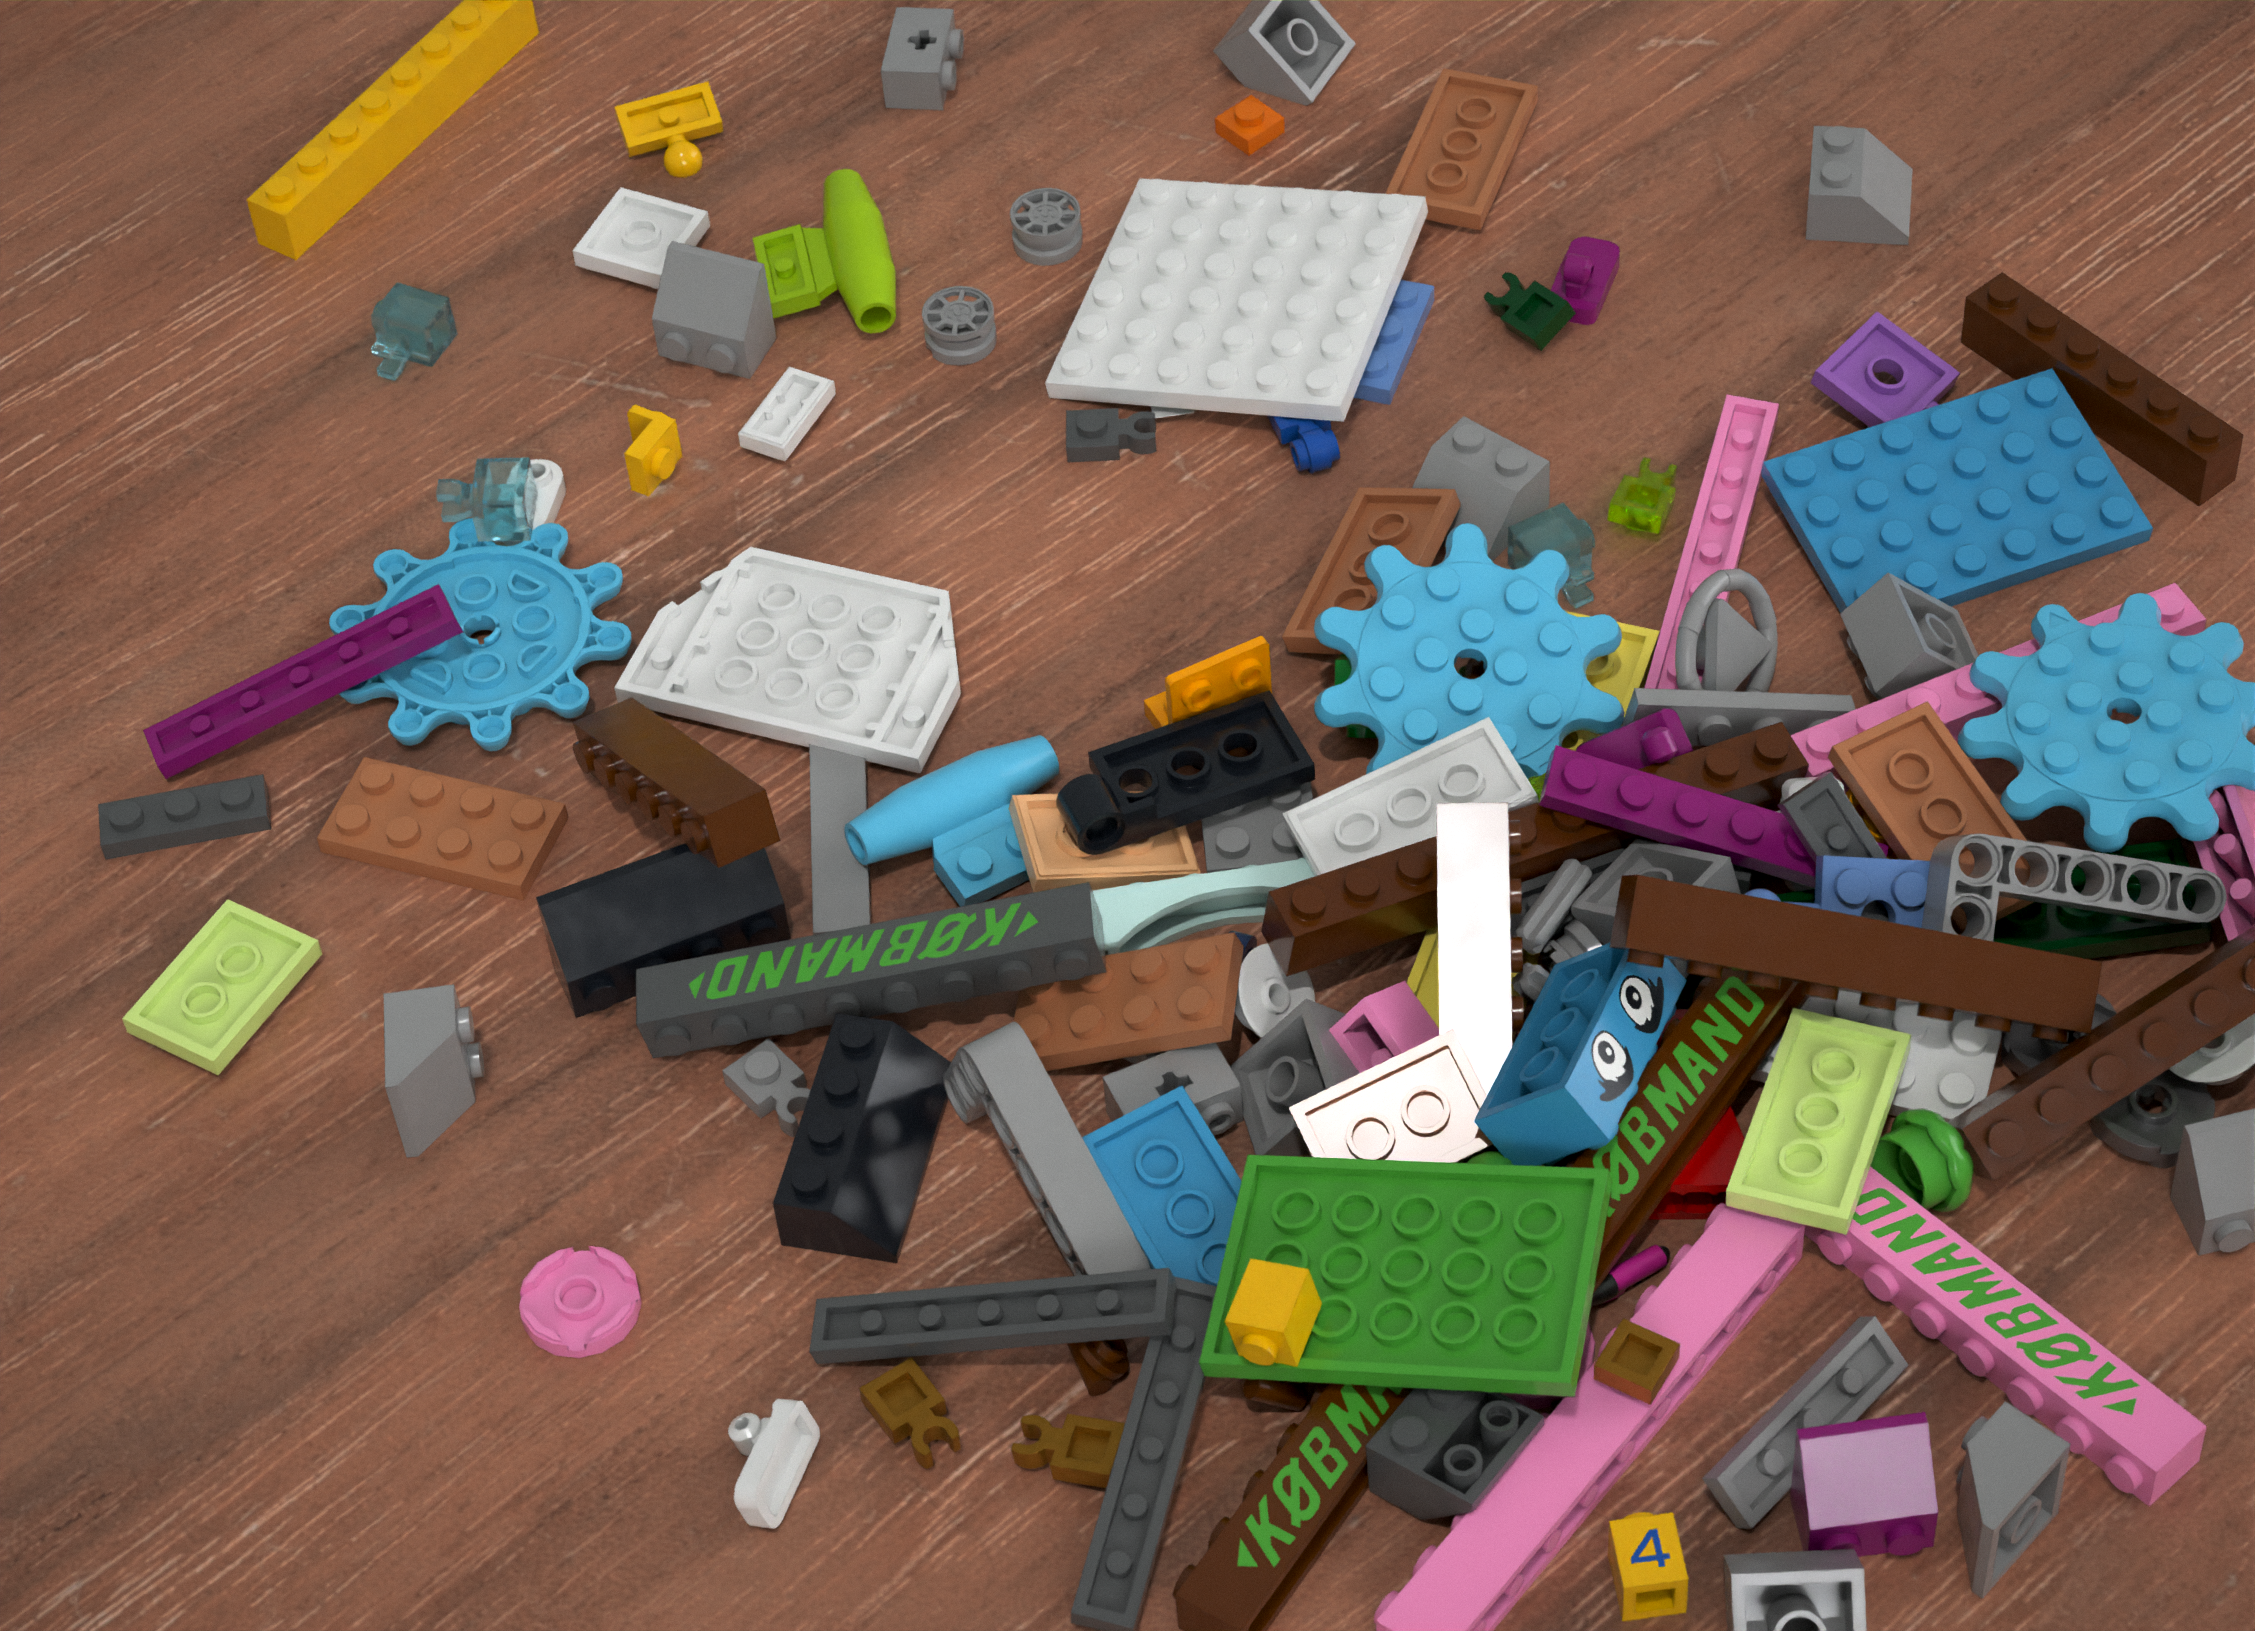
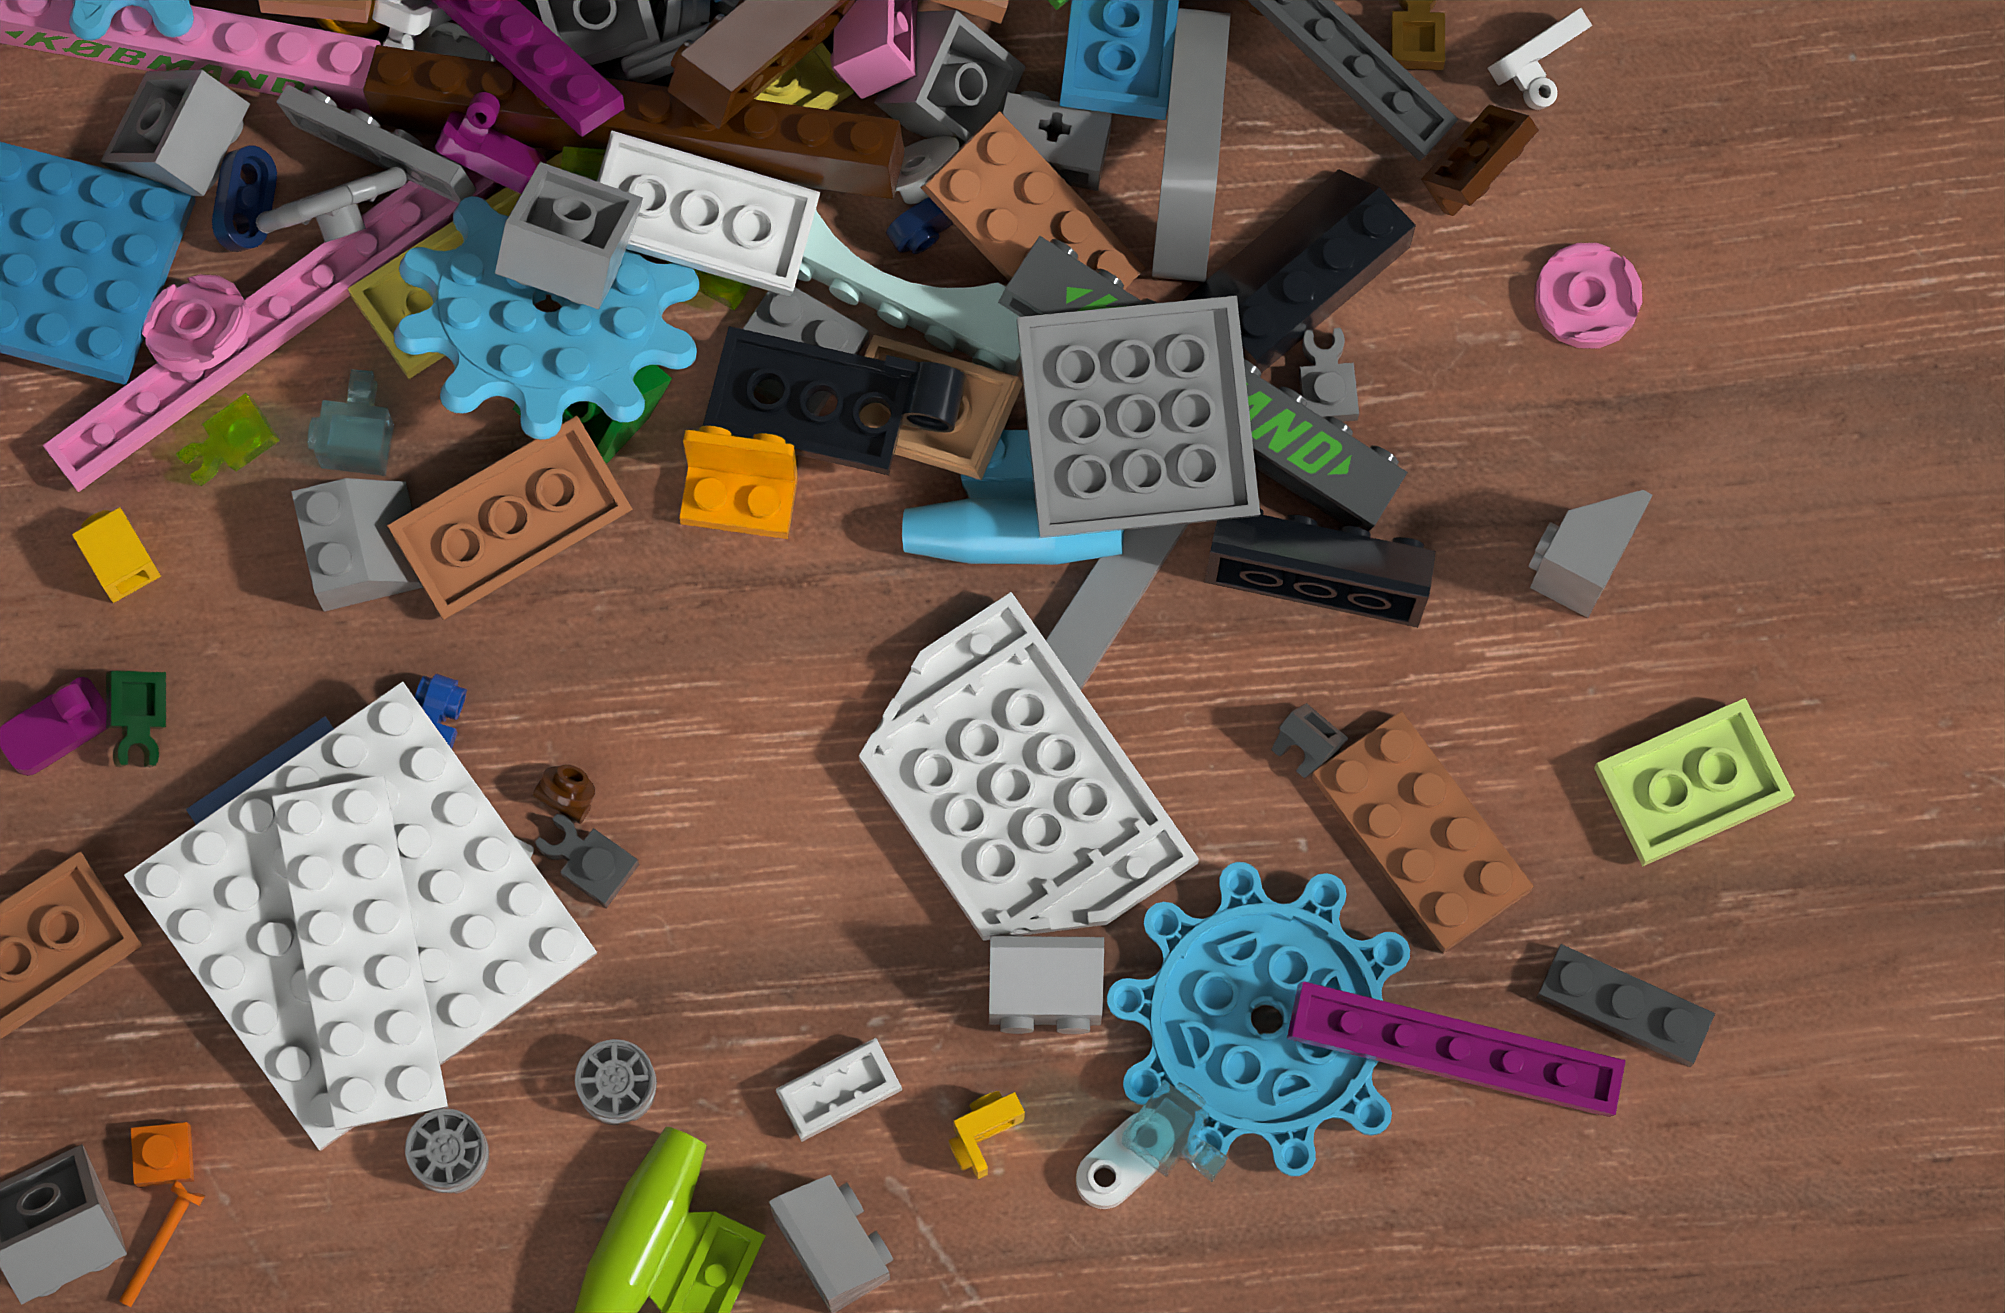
camera: 150 degrees left, 25 degrees up
(583, 822) = (1313, 734): none -> dark grey tile
(675, 782) = (1242, 651): reddish brown brick -> none
(677, 546) = (1046, 983): none -> light grey slope
(759, 1313) = (1478, 157): none -> reddish brown bracket
(896, 874) = (1138, 417): none -> light grey plate
(1162, 455) = (566, 791): none -> reddish brown plate
(1208, 108) = (160, 1241): none -> orange piece
(1213, 258) = (360, 952): none -> white plate
(1489, 682) = (567, 235): none -> light grey slope
(1650, 381) = (115, 553): none -> yellow brick
(1749, 532) = (196, 324): none -> bright pink tile
(1813, 644) = (243, 200): none -> dark blue plate

